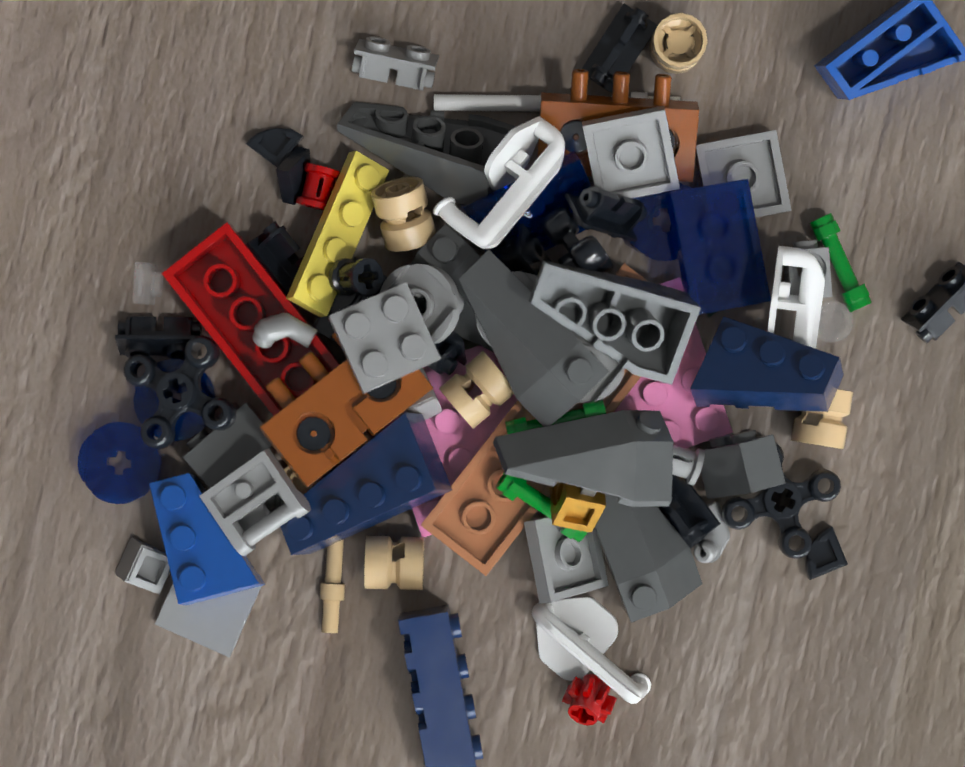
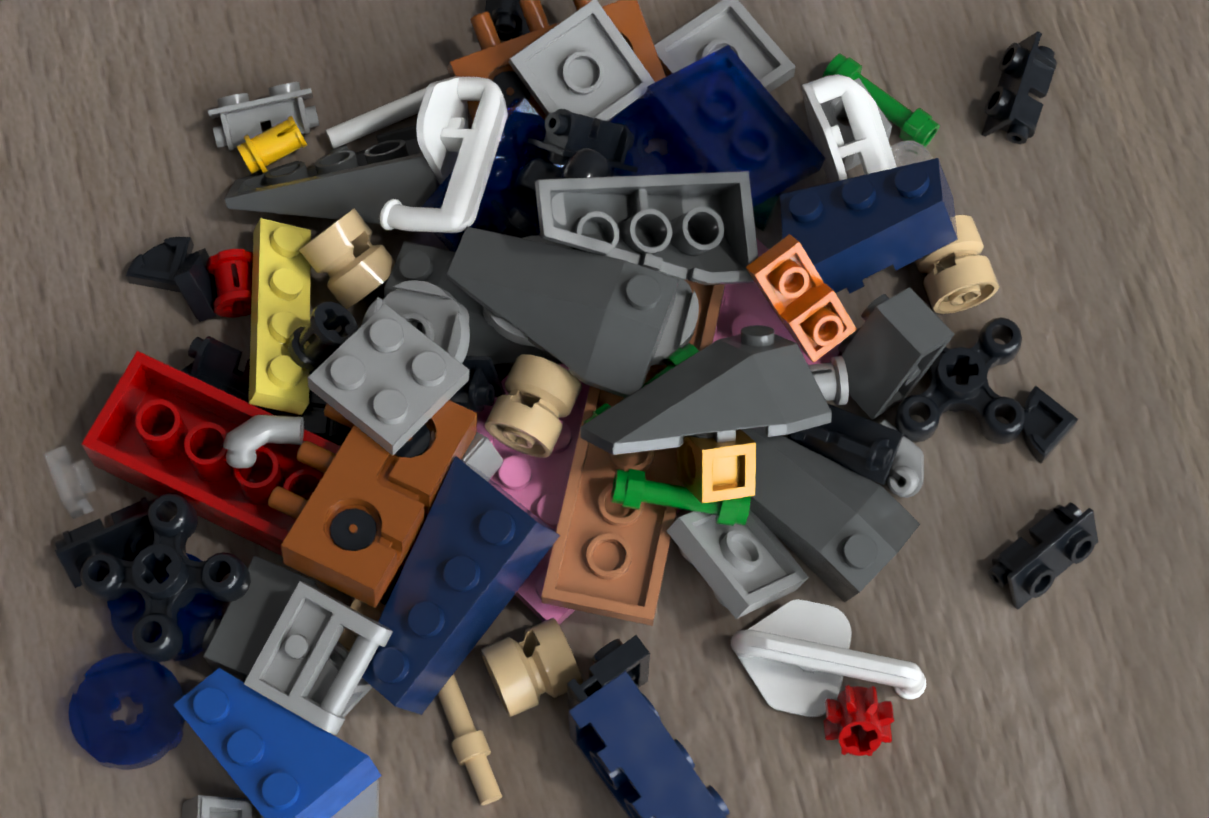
camera: 30 degrees left, 20 degrees down
(387, 92) = (271, 145): none -> yellow pin
(443, 598) = (610, 663): none -> black plate
(693, 409) = (801, 298): none -> orange slope
(789, 644) = (1064, 539): none -> black hinge

